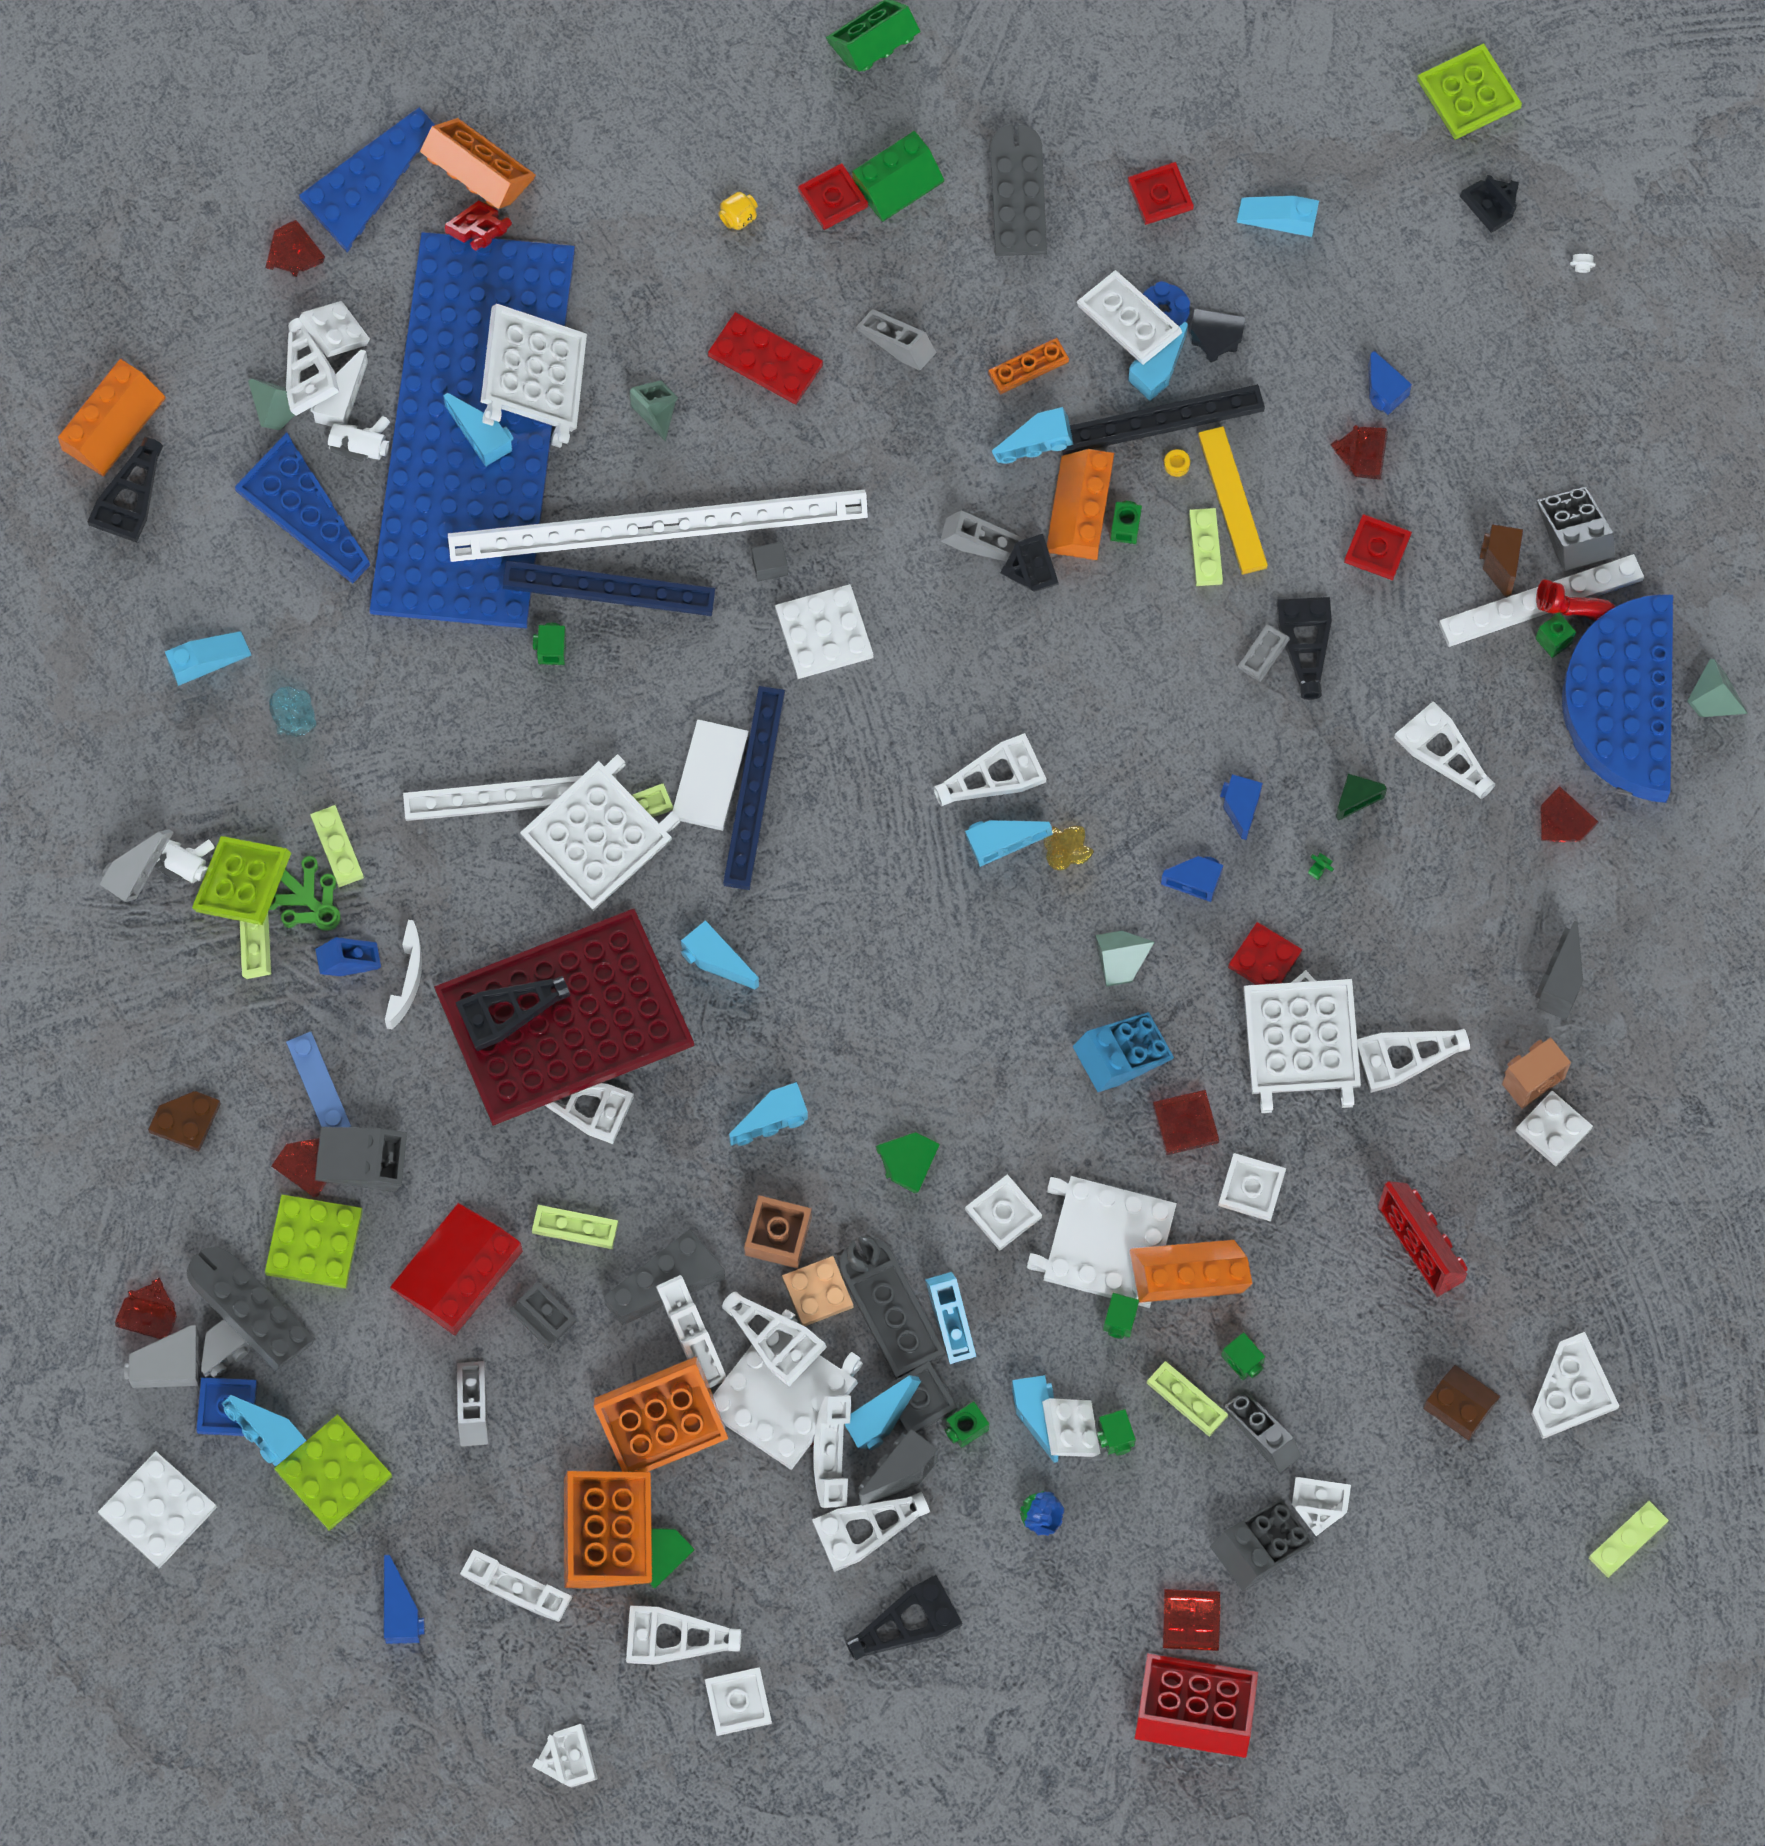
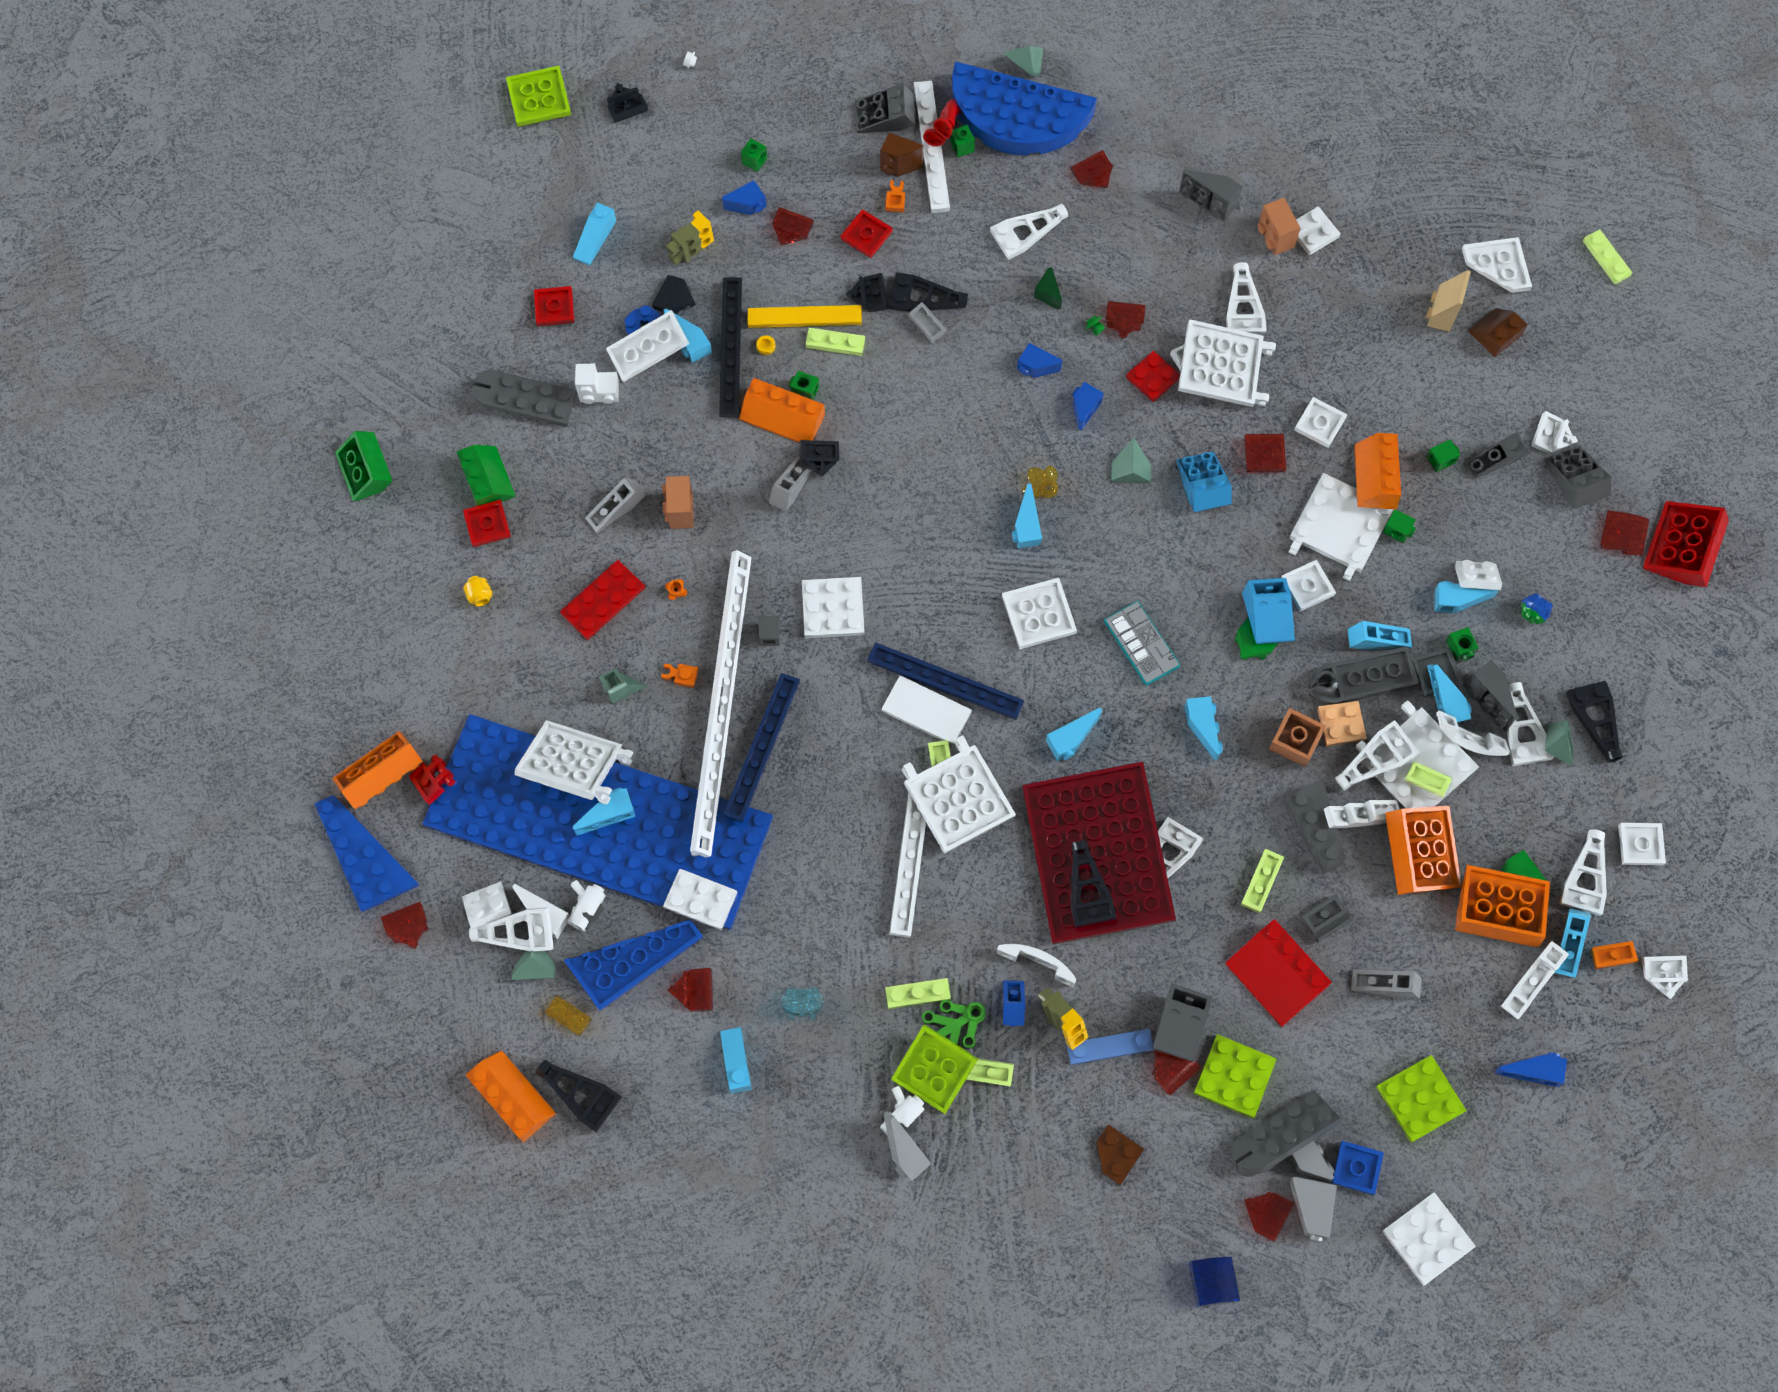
camera: 75 degrees left, 0 degrees up
(51, 1260) = (1213, 1281): none -> clear blue slope
(222, 457) = (568, 1015): none -> clear yellow plate
(269, 1431) = (1393, 1133): medium azure slope -> none
(285, 590) = (695, 990): none -> clear red slope
(330, 1021) = (1063, 1017): none -> hips
(395, 564) = (700, 899): none -> white plate
(550, 644) = (794, 799): green brick -> none
(575, 1685) = (1613, 955): none -> orange plate
(583, 1628) = (1573, 941): none -> medium azure slope
(687, 478) = (683, 675): none -> orange plate
(757, 1405) = (1428, 779): none -> yellowish green tile
(800, 432) = (670, 586): none -> orange plate
(851, 1573) = (1559, 741): none -> sand green slope
(869, 1018) = (1141, 643): none -> tile
(877, 881) = (1039, 613): none -> white plate
(914, 408) = (678, 502): none -> nougat brick
(947, 1164) = (1269, 610): none -> dark azure slope
(1015, 372) = (663, 432): orange tile -> none
(1022, 763) = (973, 496): white plate -> none
(1040, 434) = (723, 420): medium azure slope -> none
(1054, 267) = (596, 386): none -> white brick
(1116, 1433) = (1484, 548): green brick -> none
(1187, 1398) = (1466, 498): yellowish green plate -> none
(1291, 573) = (870, 293): none -> black slope
(1299, 329) = (690, 239): none -> olive hips
(1344, 903) = (1125, 317): none -> clear red slope
(1421, 1238) = (1383, 324): red slope -> none
(1441, 572) = (895, 198): none -> orange plate
(1455, 377) = (754, 154): none -> green brick
(1477, 1321) = (1447, 302): none -> tan slope

